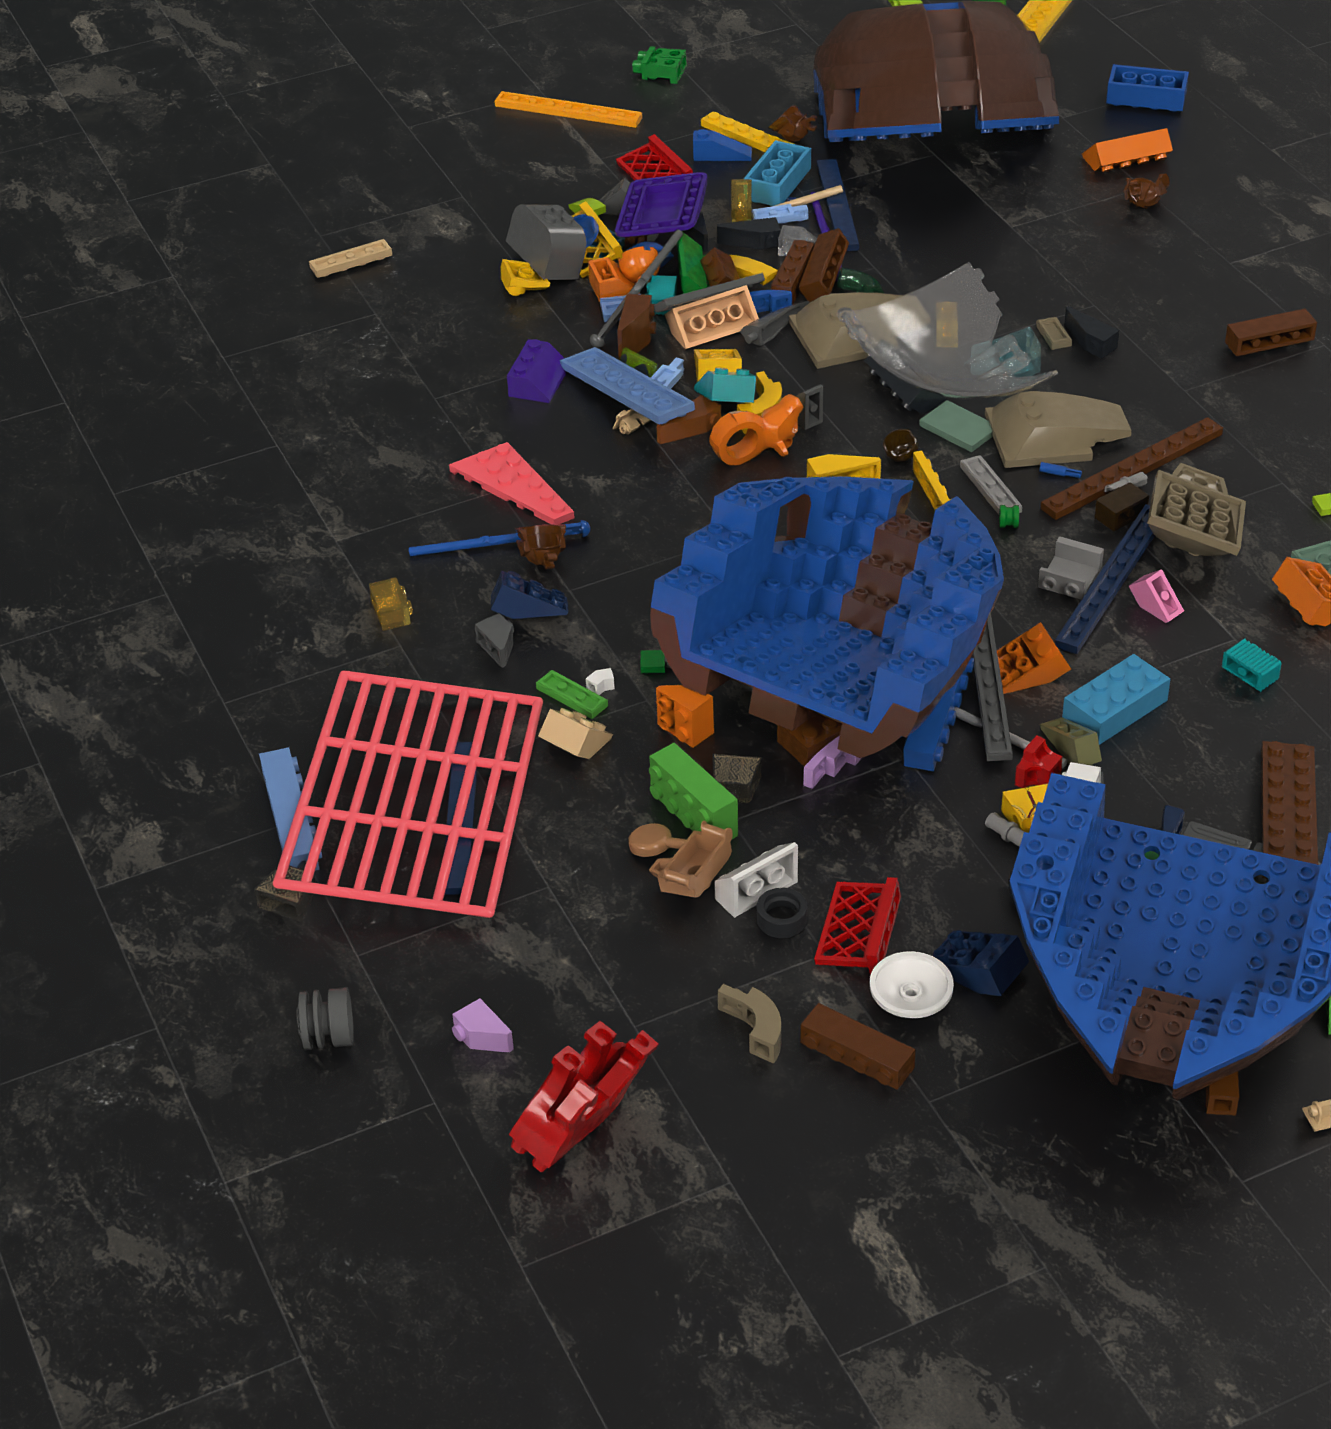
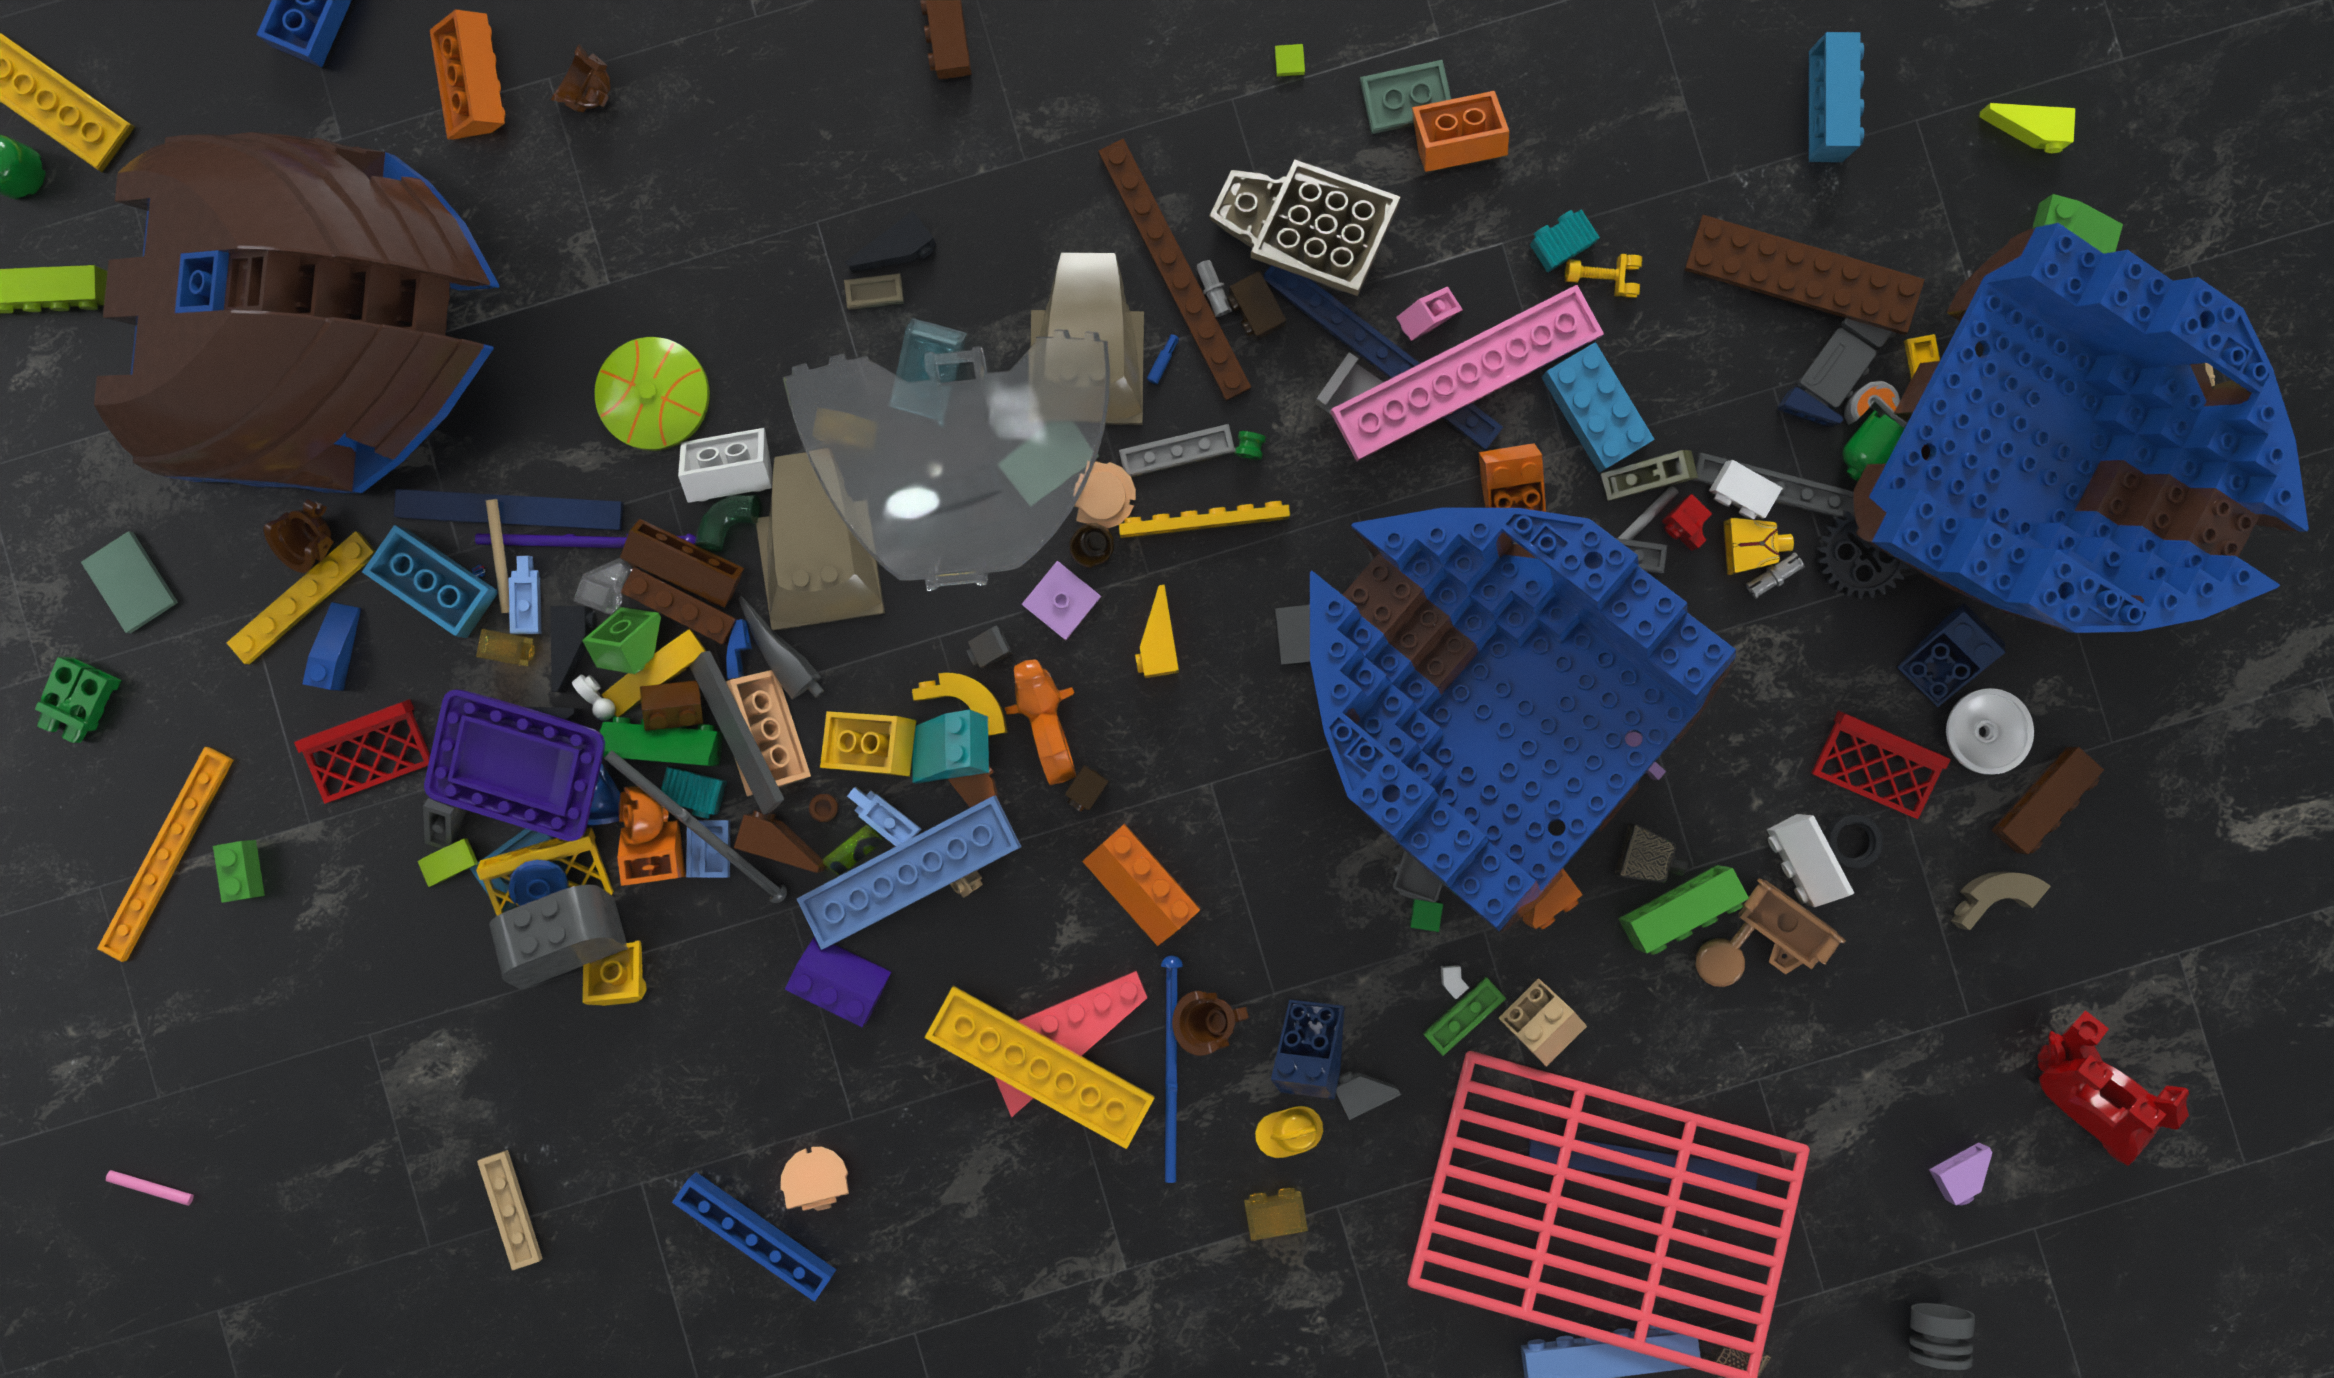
camera: 80 degrees left, 45 degrees up
(344, 354) = (754, 1236): none -> blue brick
(348, 128) = (149, 1188): none -> bright pink bar
(387, 379) = (814, 1179): none -> light nougat piece
(458, 610) = (1289, 1132): none -> yellow piece
(490, 464) = (1039, 1067): none -> yellow plate
(563, 130) = (238, 870): none -> bright green brick
(647, 506) = (1141, 885): none -> orange slope
(664, 355) = (823, 808): none -> reddish brown tile
(712, 459) = (1086, 789): none -> dark brown brick
(722, 242) = (588, 688): none -> white plate
(741, 77) = (129, 582): none -> sand green tile
(759, 247) = (624, 640): none -> bright green slope
(853, 442) = (1061, 600): none -> lavender plate
(894, 274) = (725, 465): none -> white slope
(939, 249) = (652, 393): none -> lime dish
(944, 449) = (1106, 496): none -> light nougat piece
(1115, 614) = (1466, 372): none -> bright pink plate
(1229, 676) = (1575, 270): none -> yellow bar

